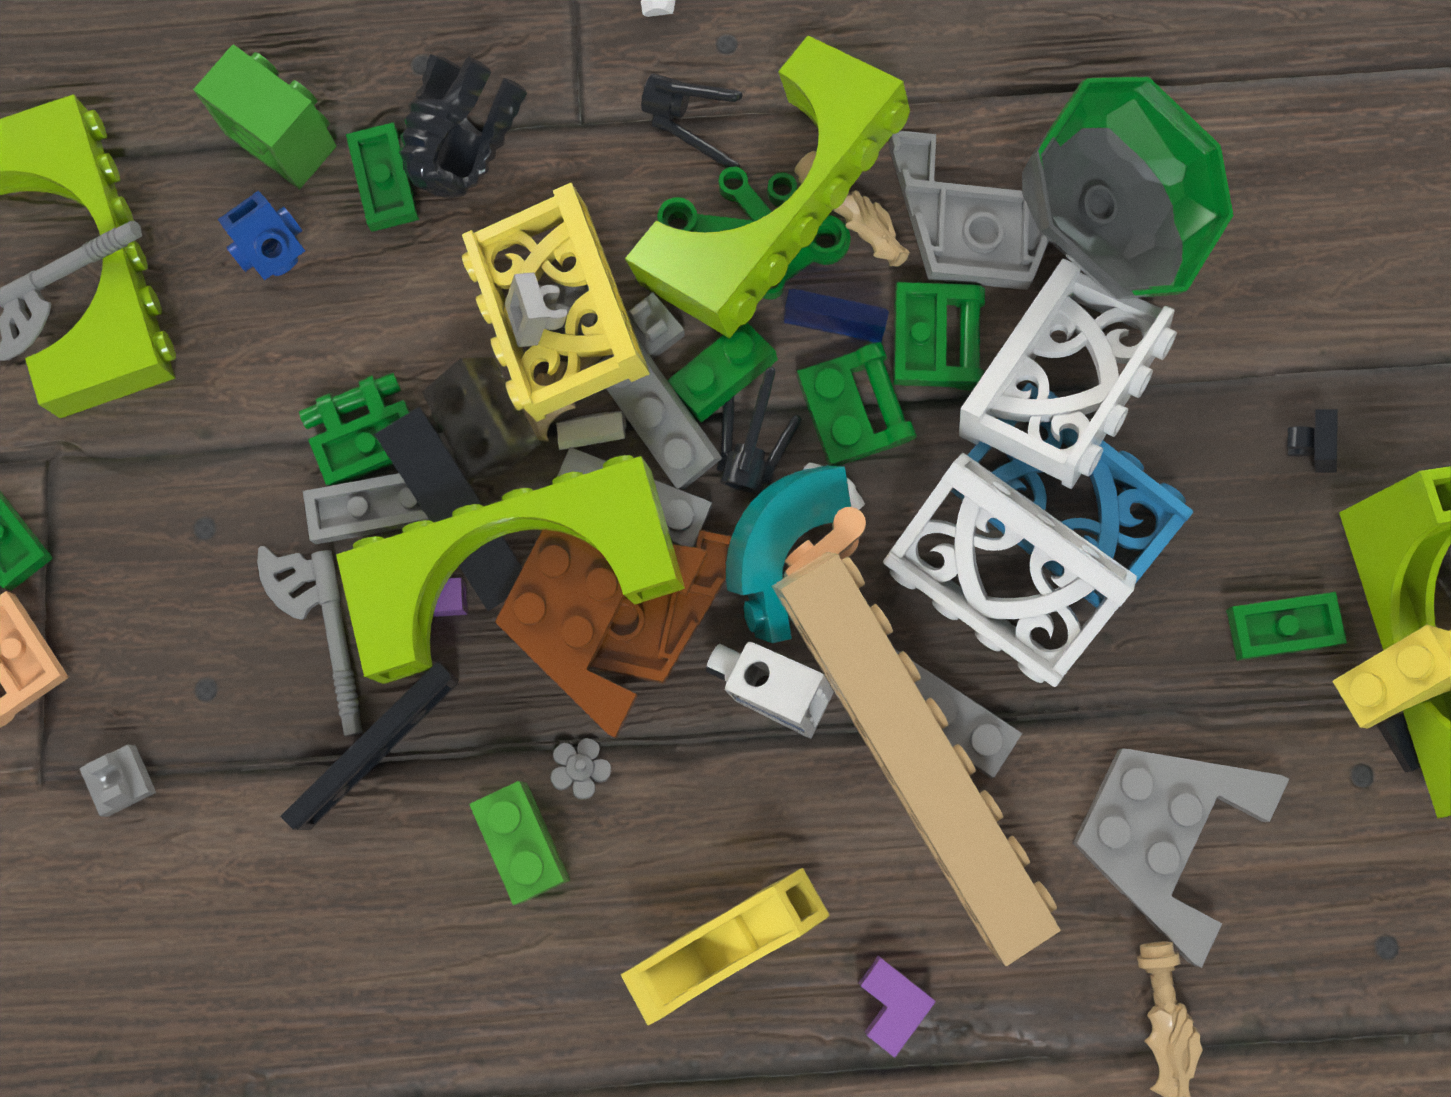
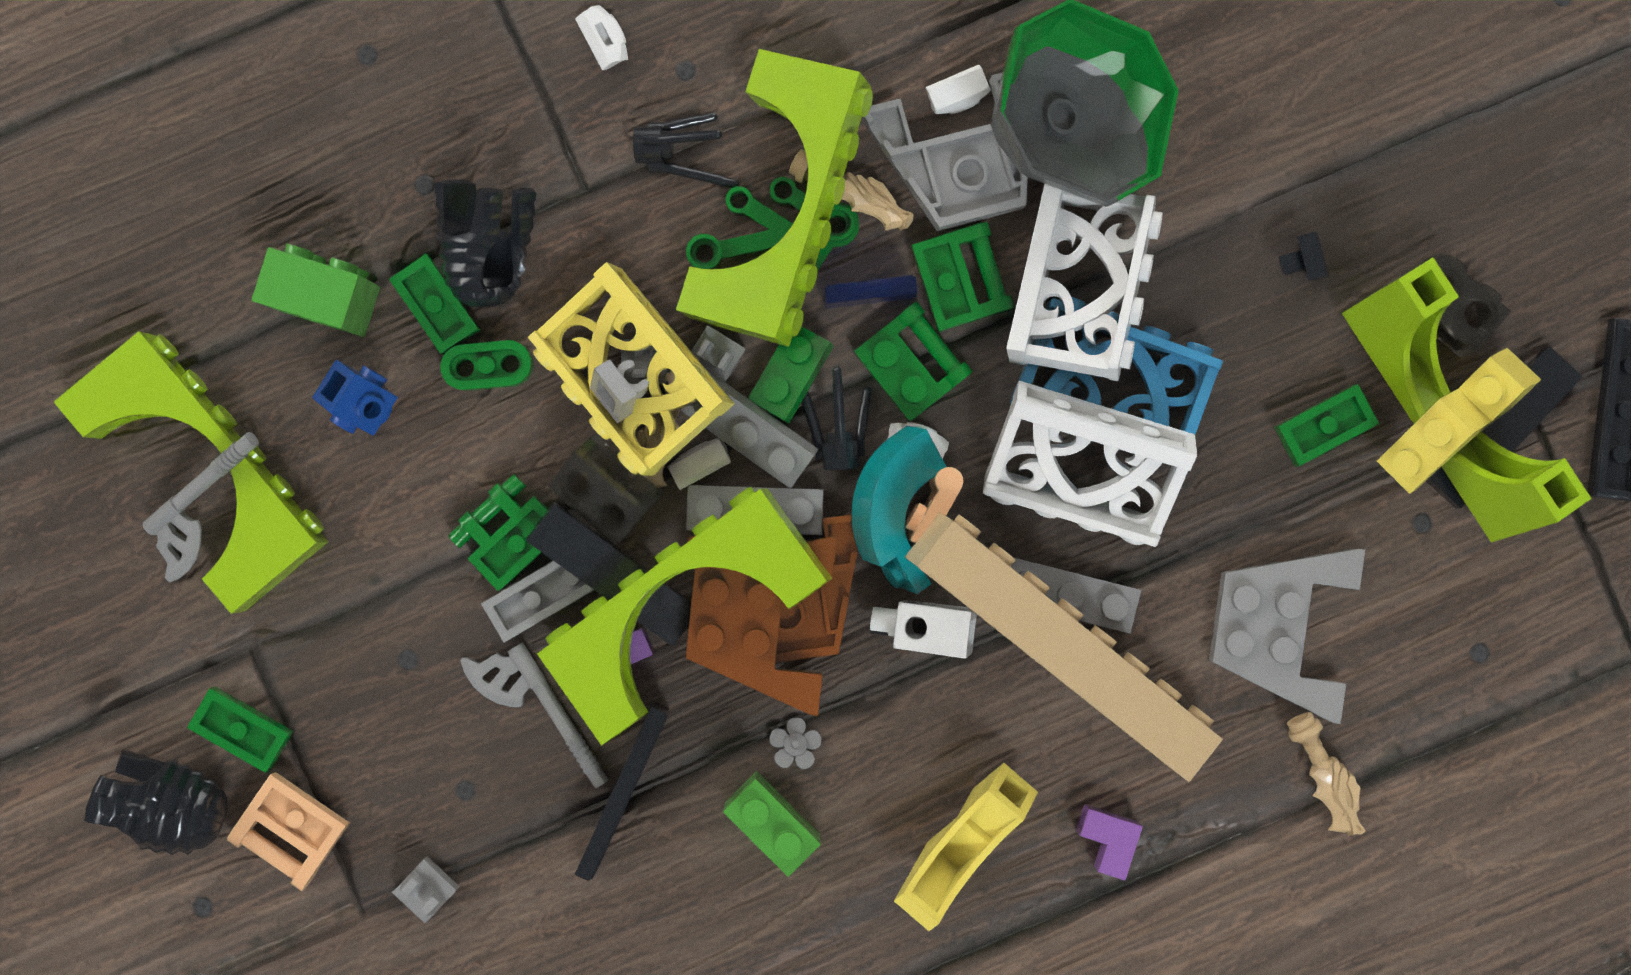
camera: 20 degrees left, 10 degrees up
(413, 254) = (488, 365): none -> green plate
(998, 153) = (958, 91): none -> white piece

